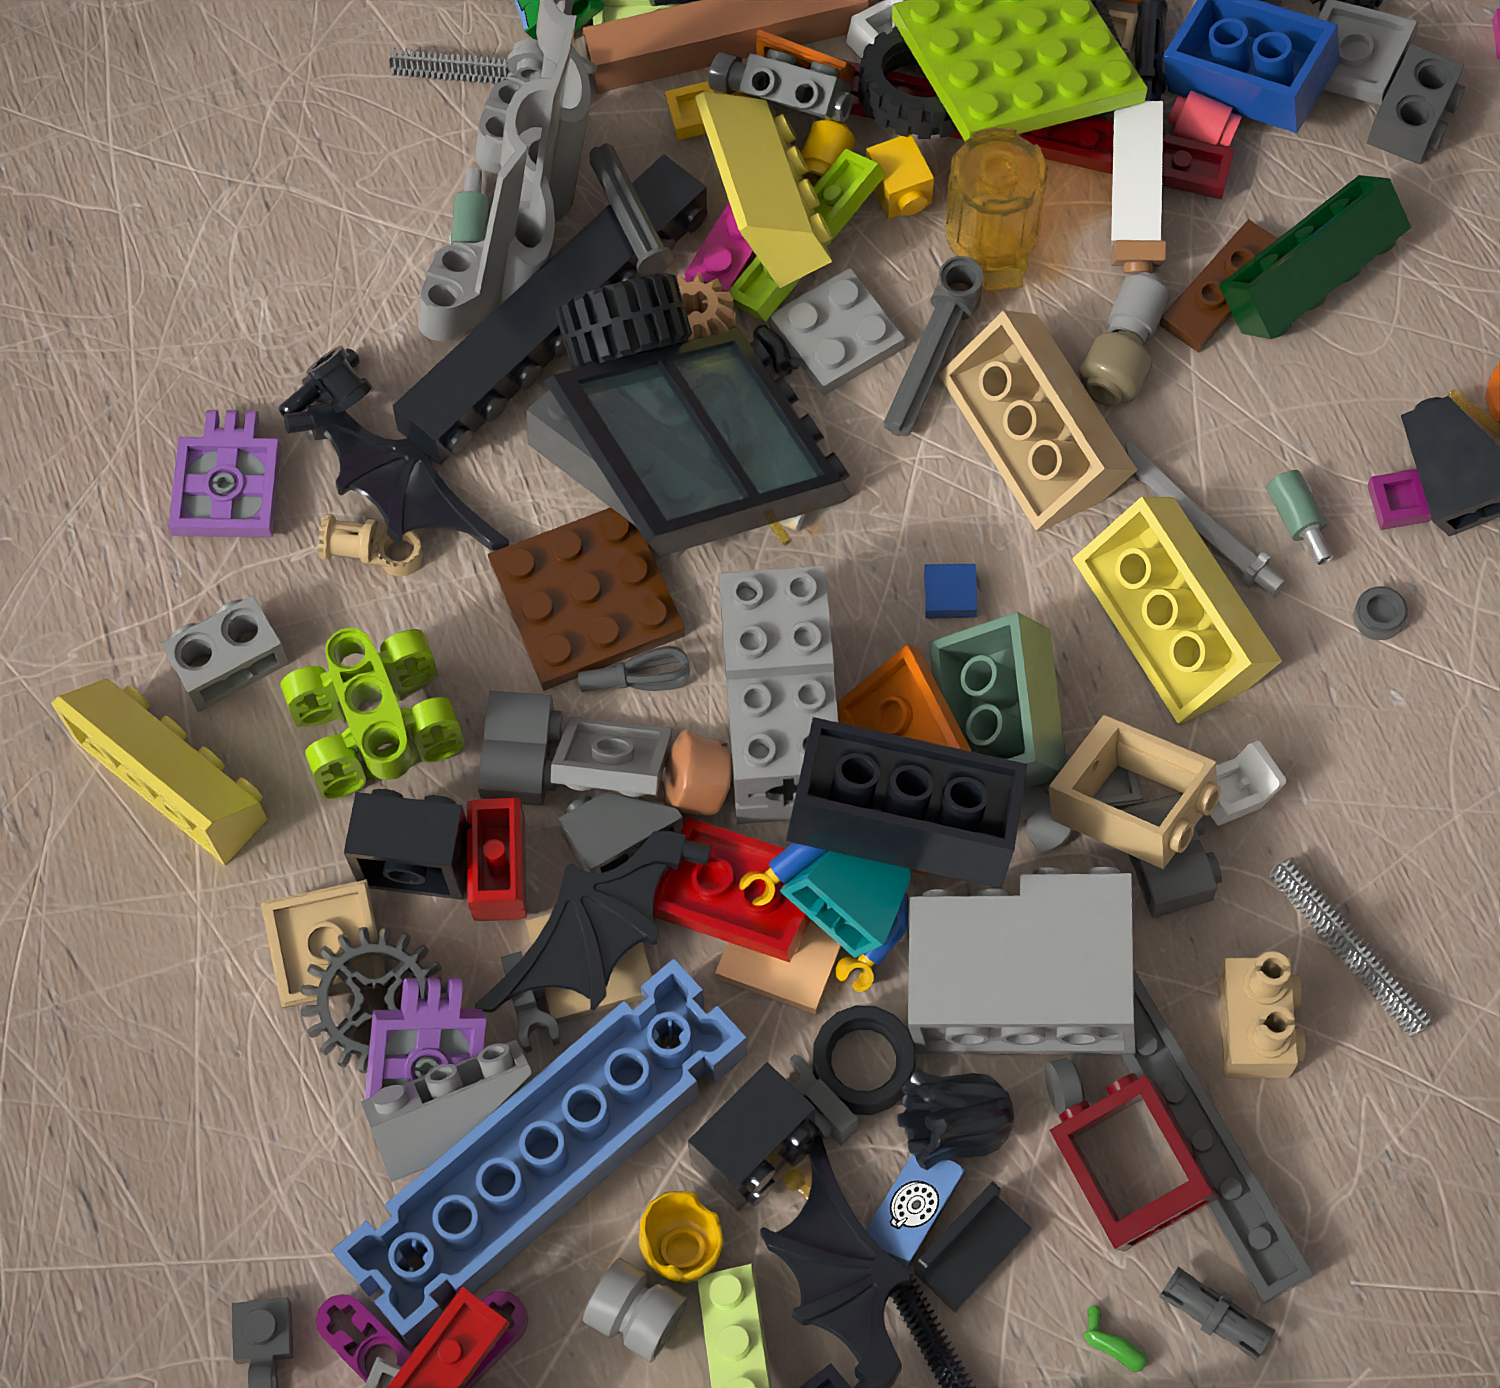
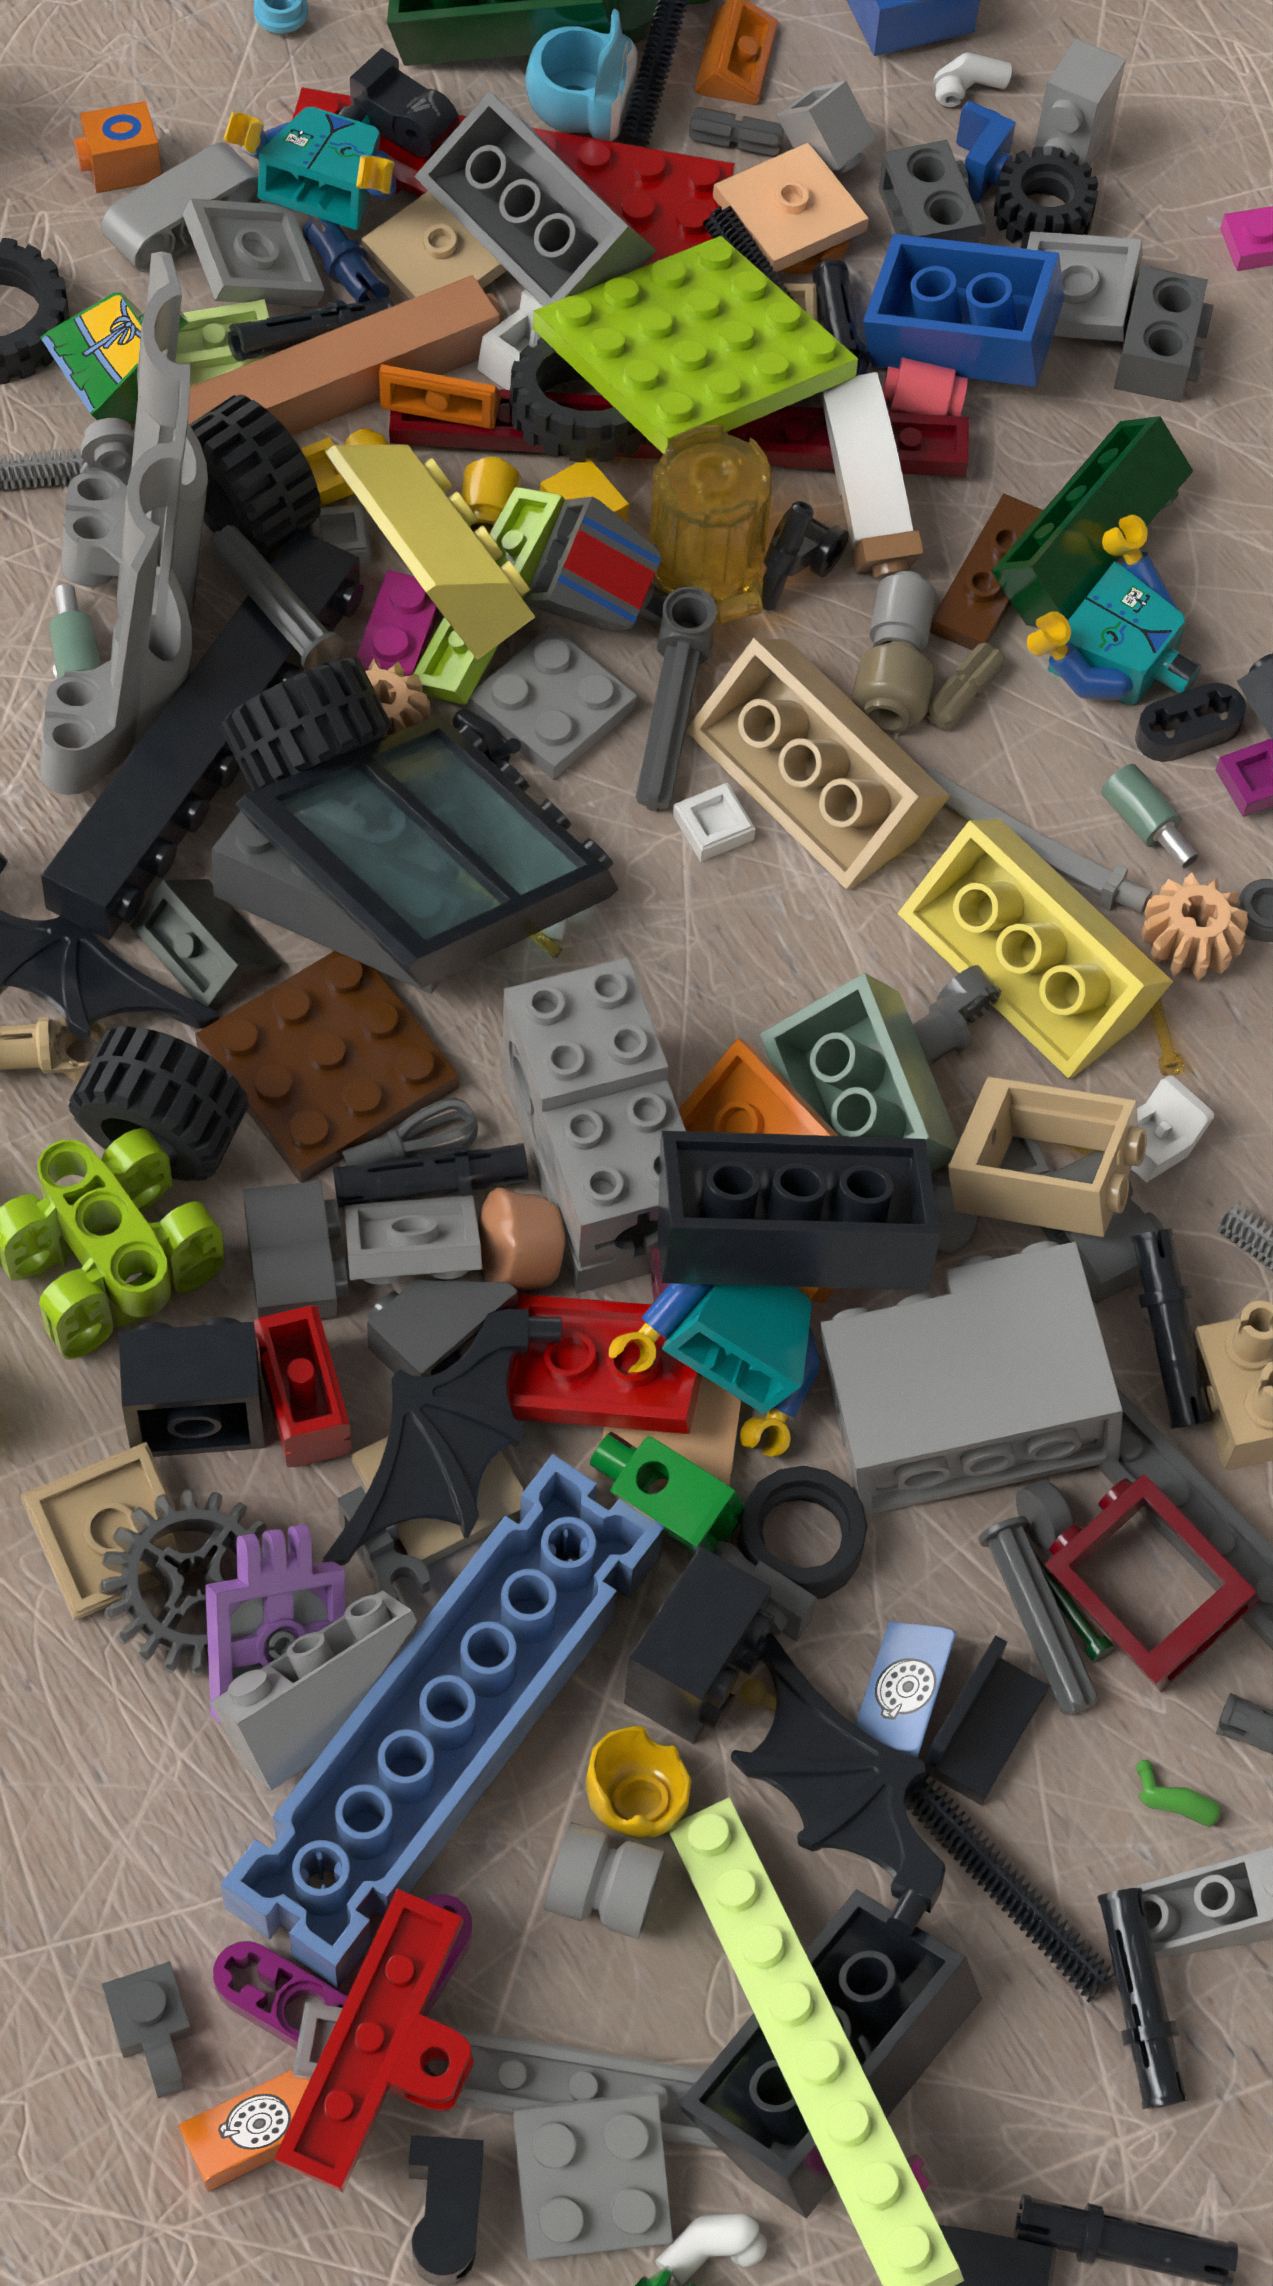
camera: 20 degrees left, 5 degrees down
(443, 603) = (162, 1086): none -> black tyre
(512, 479) = (202, 940): none -> pearl dark grey panel
(634, 104) = (255, 474): none -> black tyre
(643, 705) = (431, 1175): none -> black pin
(698, 159) = (345, 529): none -> light grey tile
(775, 1023) = (692, 1506): none -> green torso
(783, 83) = (426, 423): dark grey brick -> none
(894, 229) = (597, 570): none -> torso
(942, 454) = (714, 822): none -> white tile
(950, 590) = (764, 975): blue tile -> none
(954, 1116) = (927, 1573): black piece -> none
(1040, 1168) = (1040, 1614): none -> dark grey axle
(1065, 234) = (796, 545): none -> black piece
(1080, 1204) = (1097, 1647): none -> dark green piece
(1098, 647) = (950, 1015): none -> dark grey connector
(1184, 372) = (958, 691): none -> dark tan piece
(1205, 953) = (1171, 1327): none -> black pin
(1266, 726) = (1170, 1062): none -> clear yellow piece
(1295, 621) = (1195, 926): none -> light nougat gear
(1315, 355) = (1122, 631): none -> torso
(1357, 445) = (1192, 726): none -> black beam

